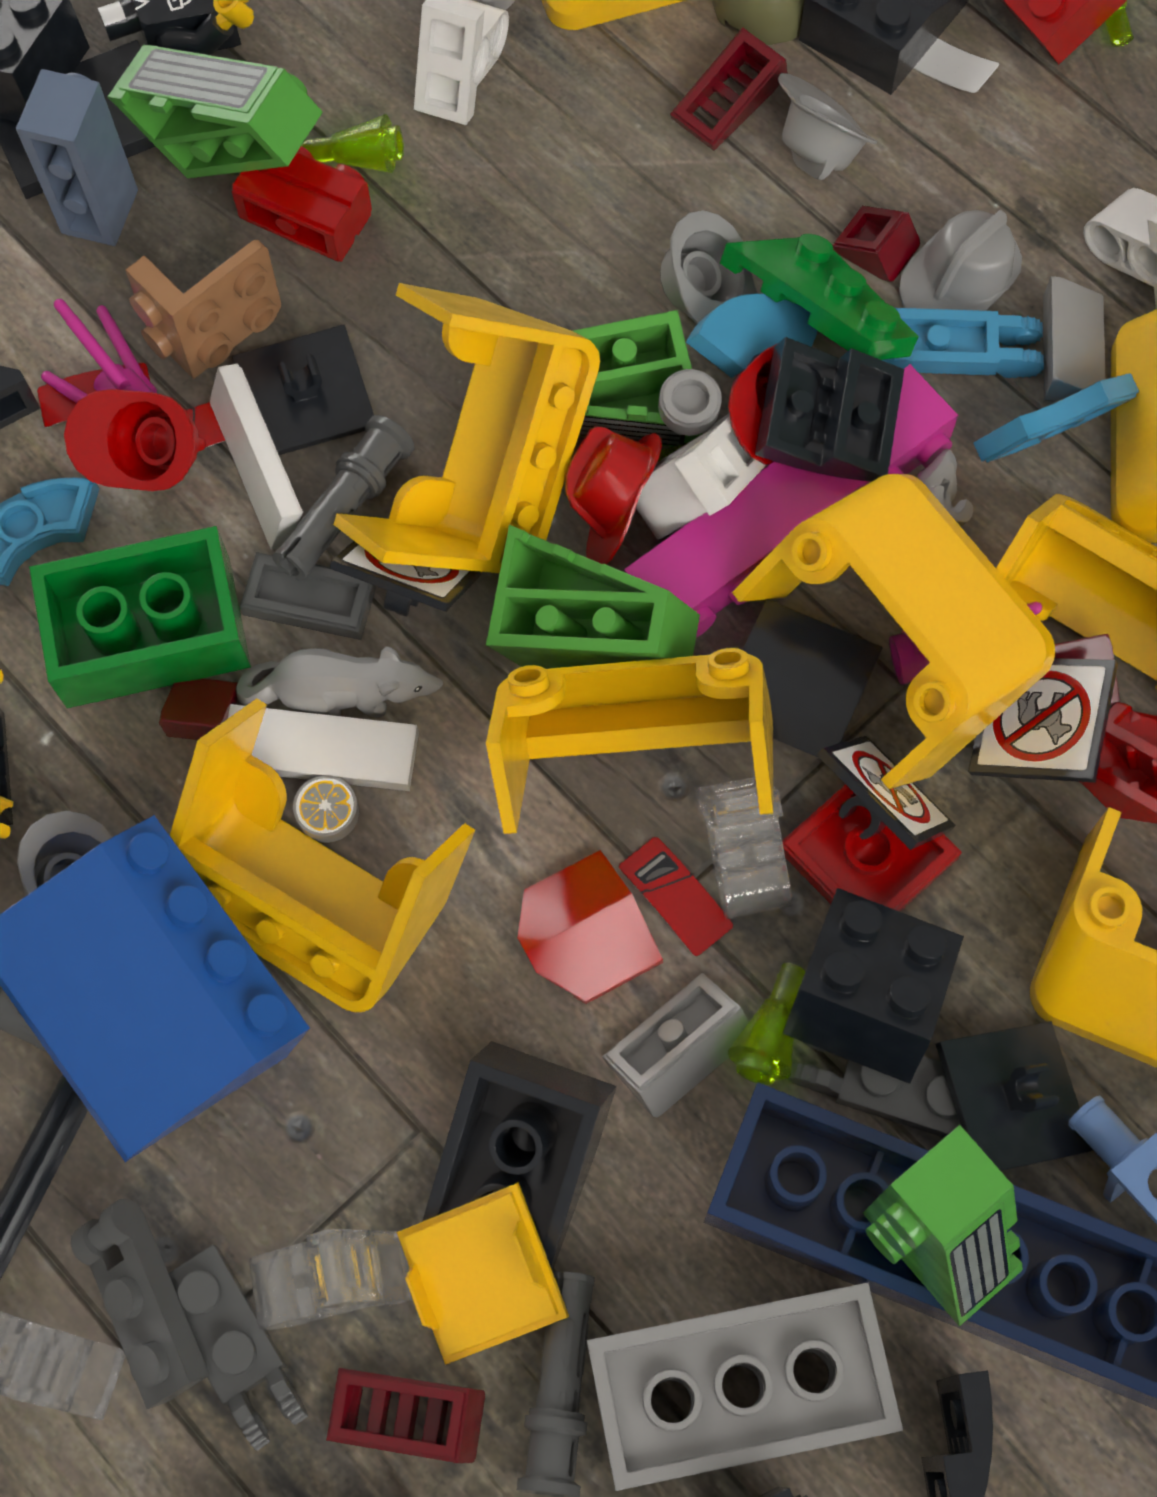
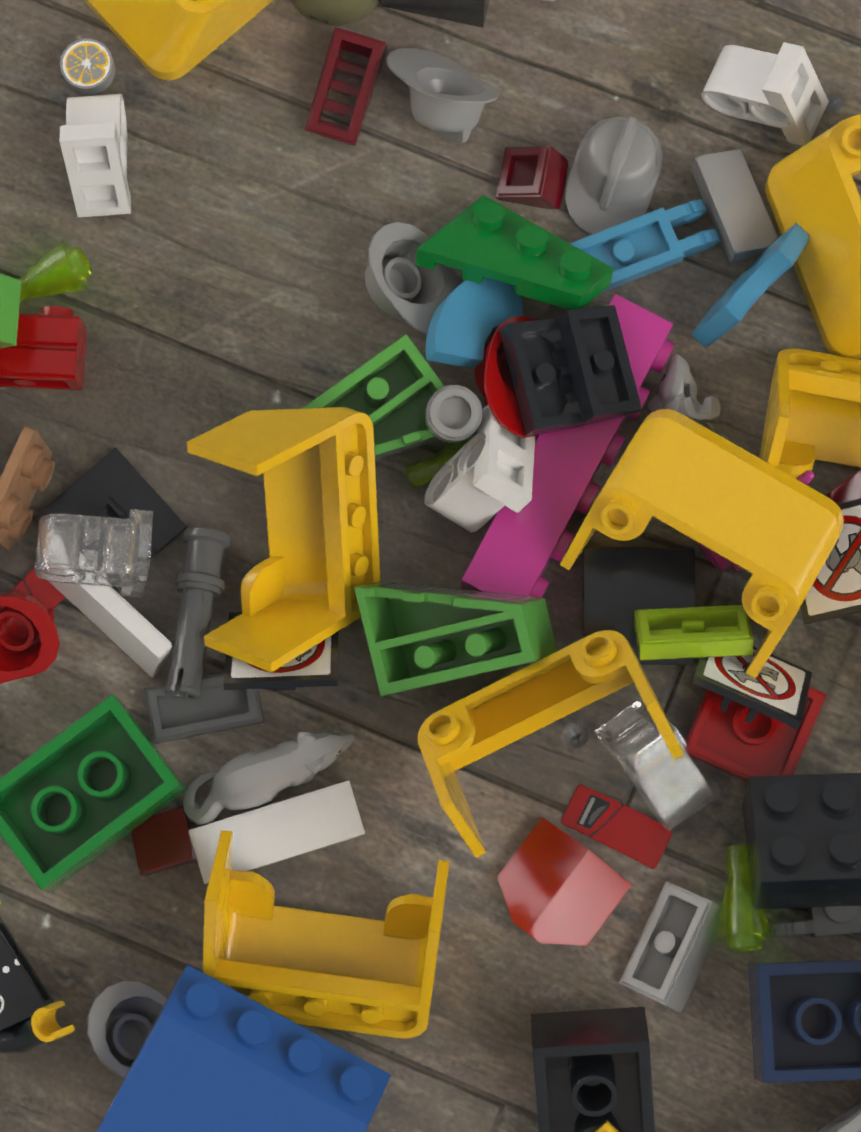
camera: 25 degrees left, 10 degrees up
(273, 390) = (96, 550): none -> clear tile
(326, 808) = (307, 881): light grey tile -> none
(606, 485) = (417, 512): red piece -> none
(843, 718) = (693, 632): none -> lime tile

